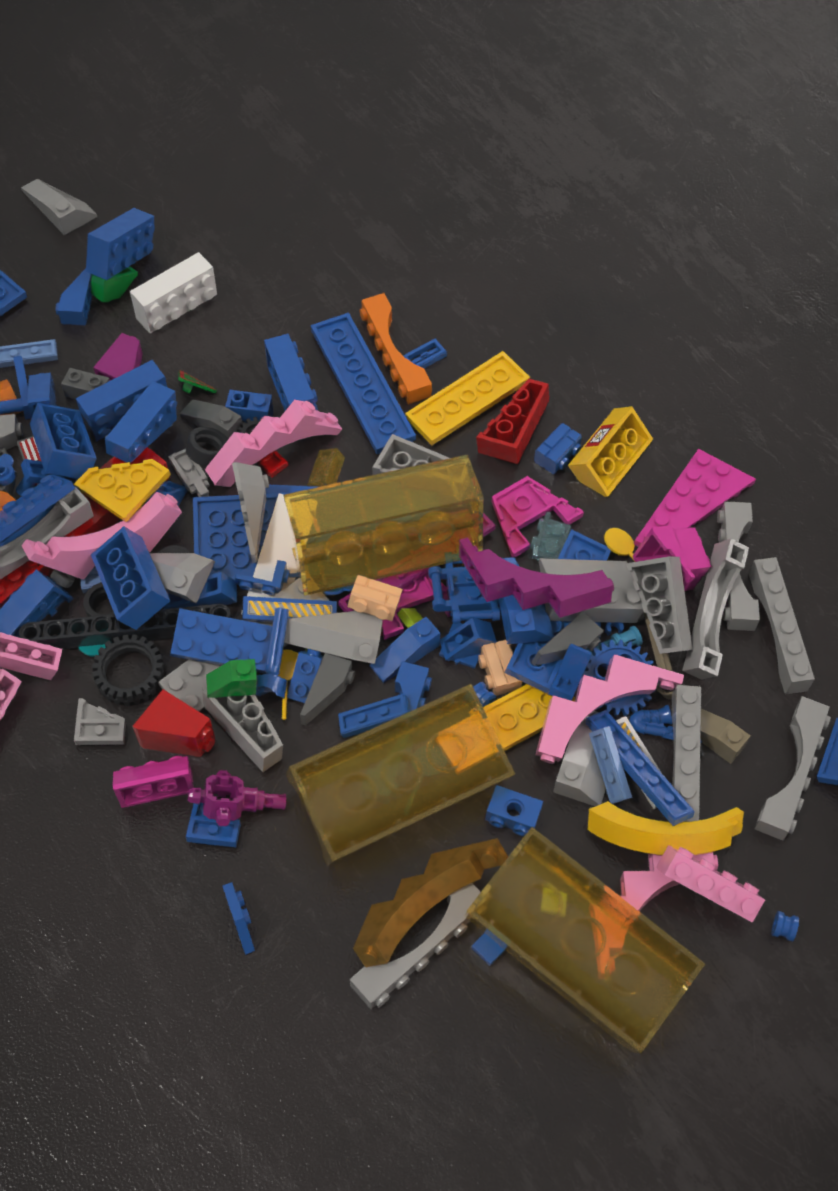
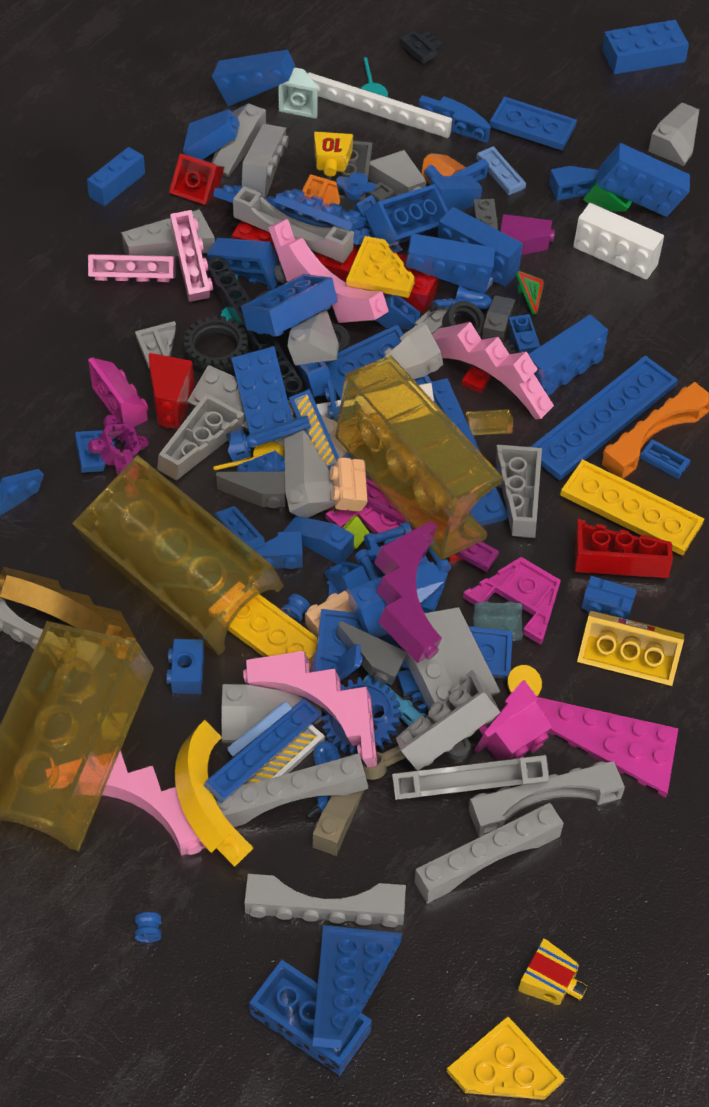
camera: 70 degrees right, 5 degrees down
(178, 432) = (480, 299): none -> blue piece
(232, 679) = (223, 409): green slope -> none
(710, 883) = (160, 838): bright pink brick -> none

